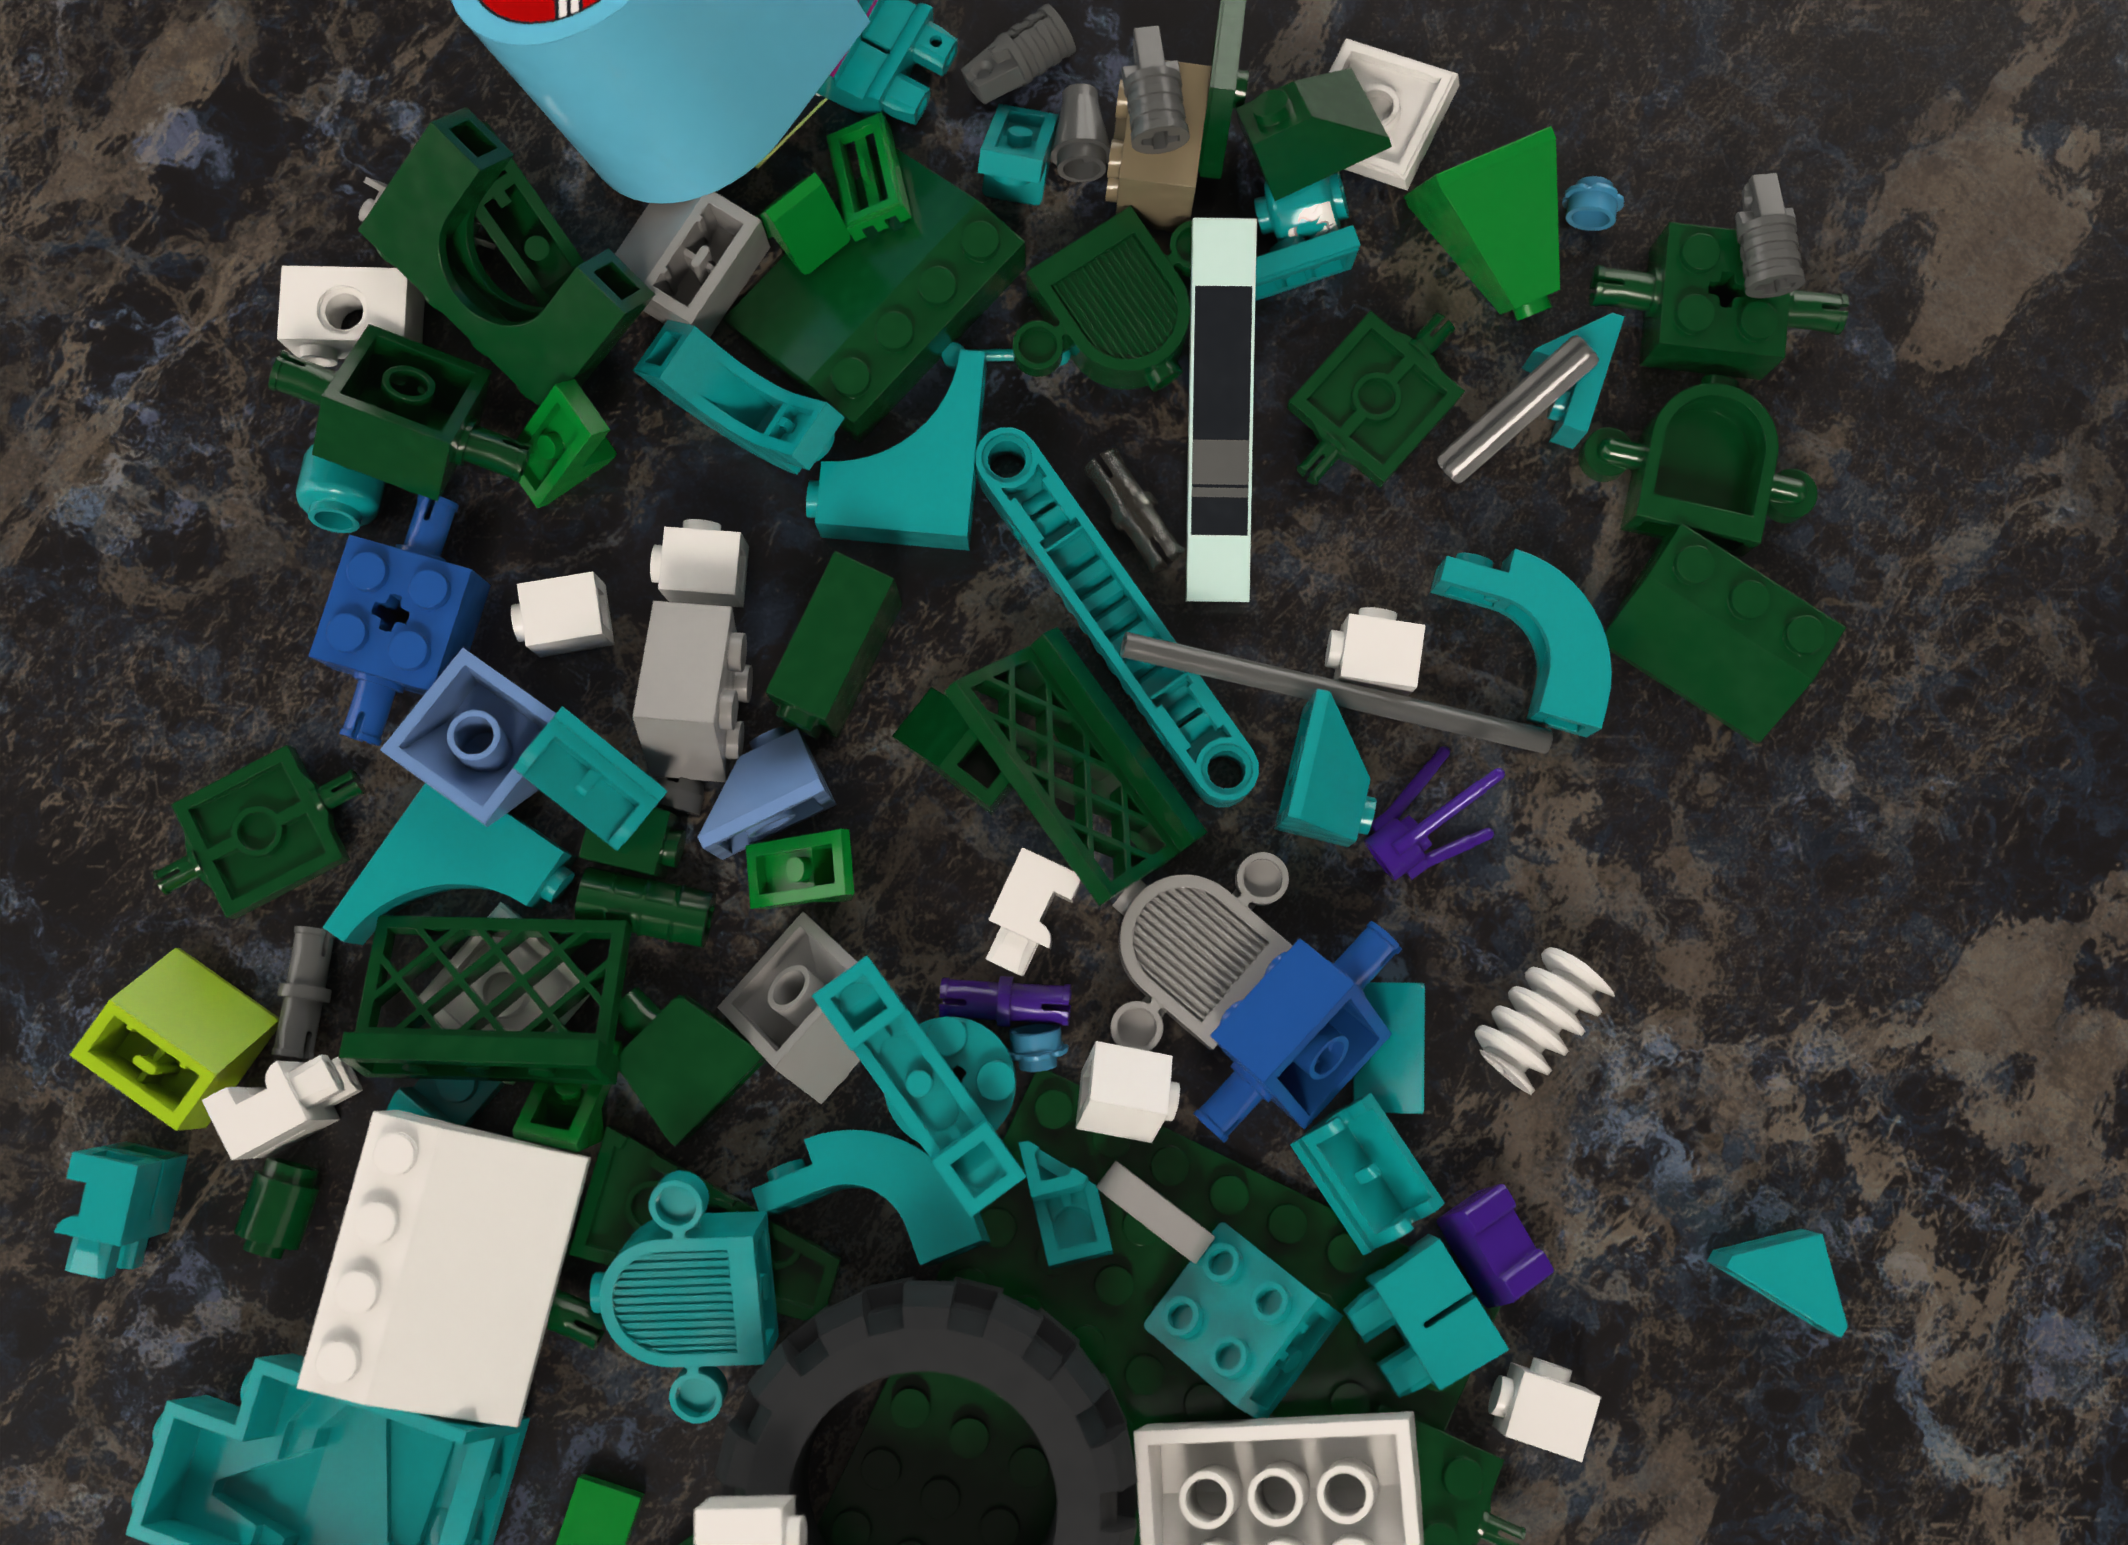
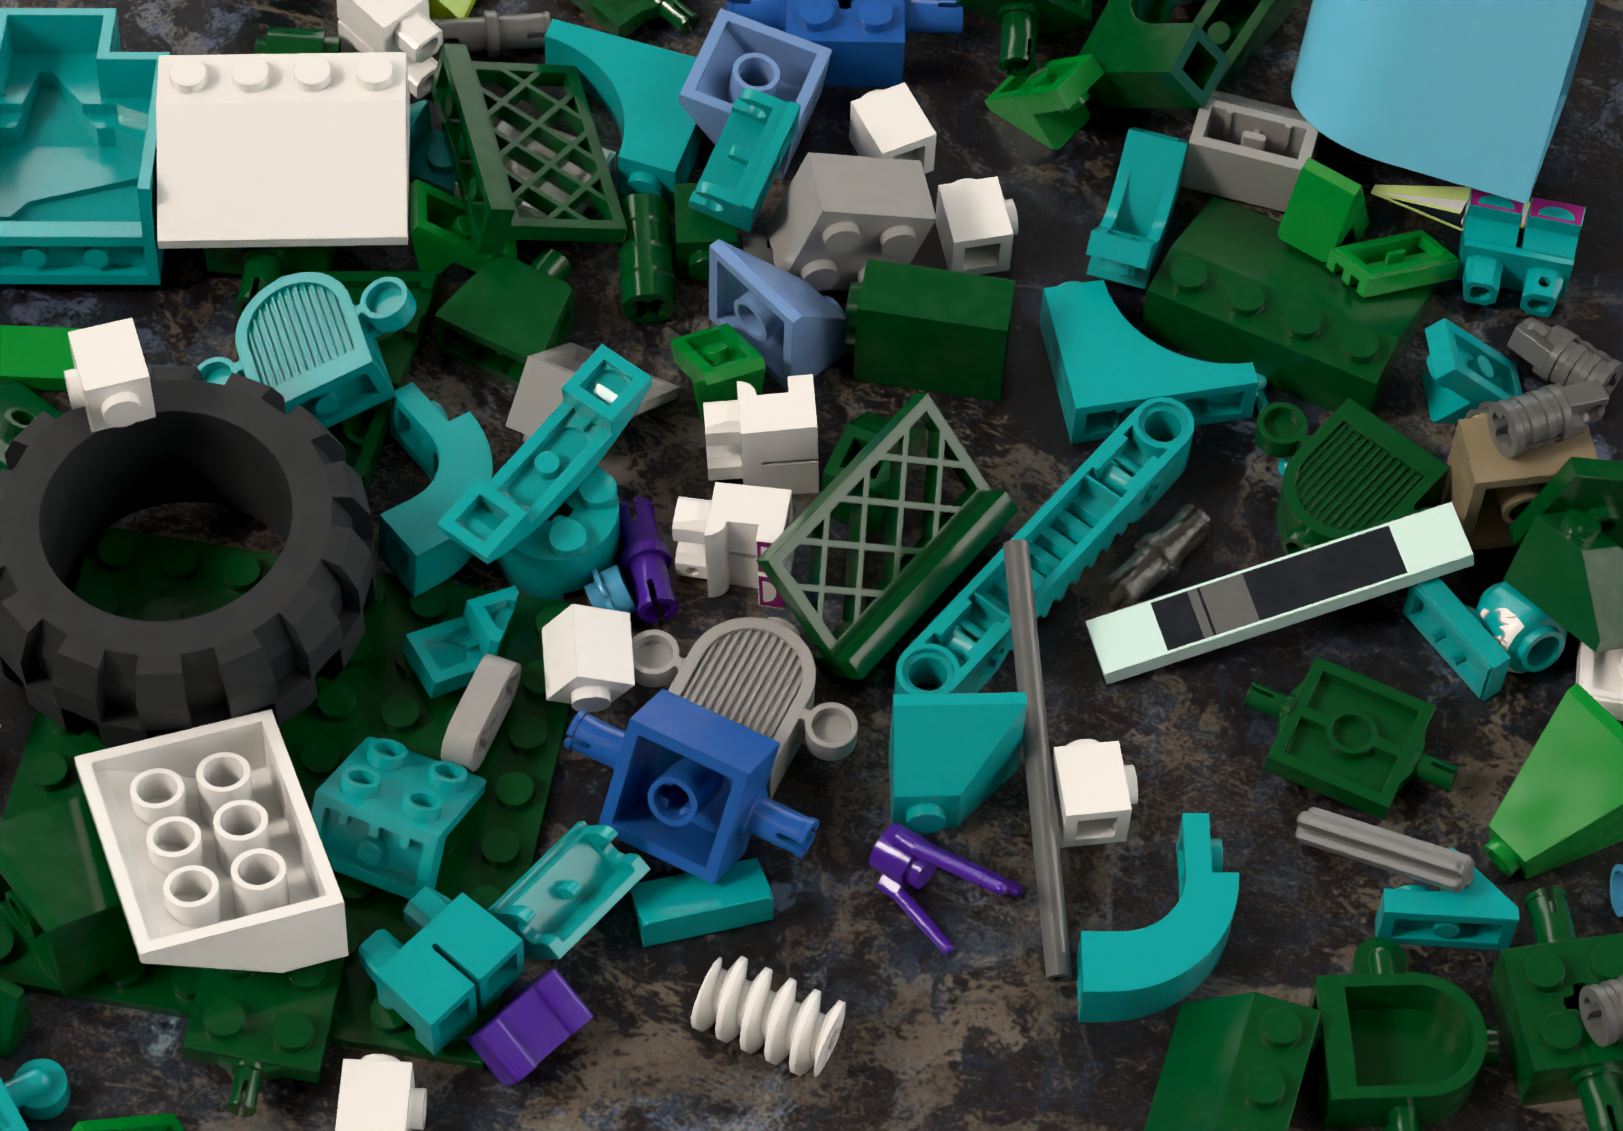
camera: 75 degrees right, 25 degrees down
(921, 848) = (765, 437): none -> white hips

